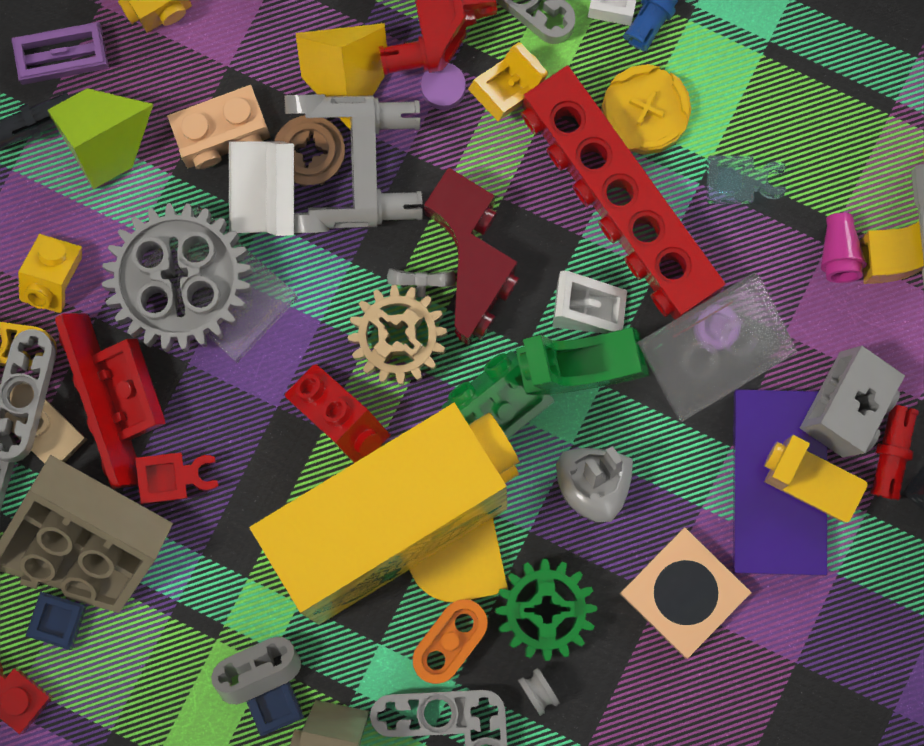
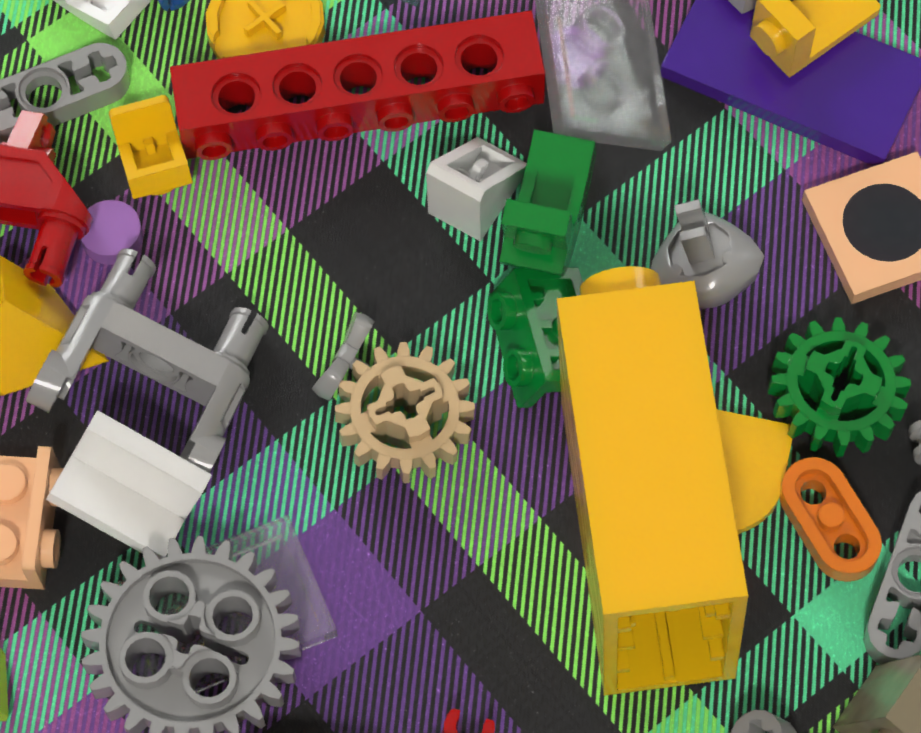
camera: 65 degrees left, 15 degrees down
(326, 139) = (108, 395): medium nougat gear -> none
(337, 414) = (468, 525): red bracket -> none
(482, 270) = (375, 277): dark red arch -> none

